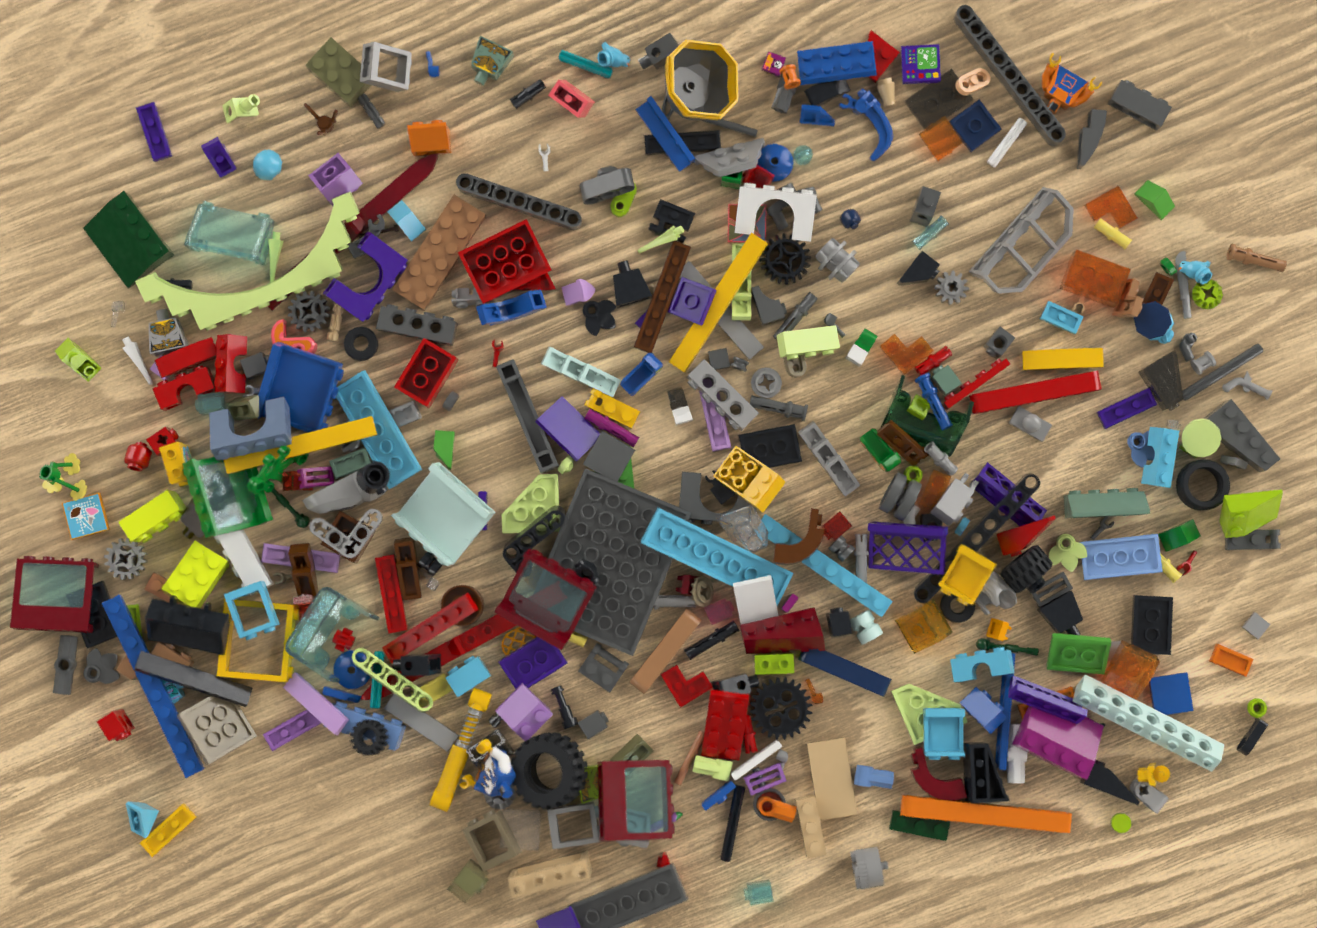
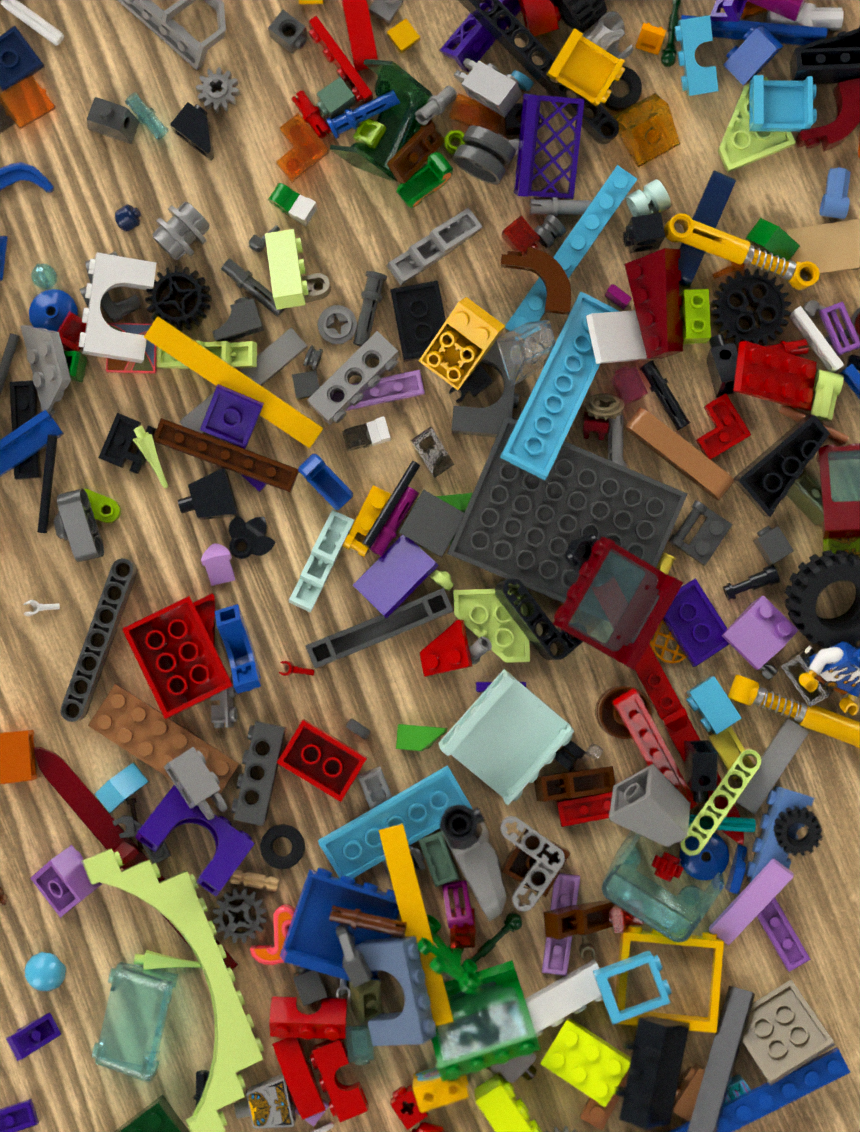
camera: 90 degrees left, 0 degrees up
(273, 396) = (353, 961): none -> dark grey piece
(305, 399) = (356, 918): none -> reddish brown pin
(388, 624) = (651, 807): none -> light grey slope
(409, 276) = (195, 781): none -> light grey hinge
(509, 490) = (479, 648): none -> light grey pin
(510, 469) = (447, 651): none -> red wing
(624, 425) = (391, 504): none -> black bar
(639, 160) = (47, 483): none -> black bar
(656, 730) = (777, 468): none -> black wedge
(665, 457) = (432, 452): none -> clear smoke slope
(824, 697) = (738, 250): none -> yellow piece
(834, 726) = (772, 240): none -> green slope
(998, 433) = (403, 35): none -> yellow tile

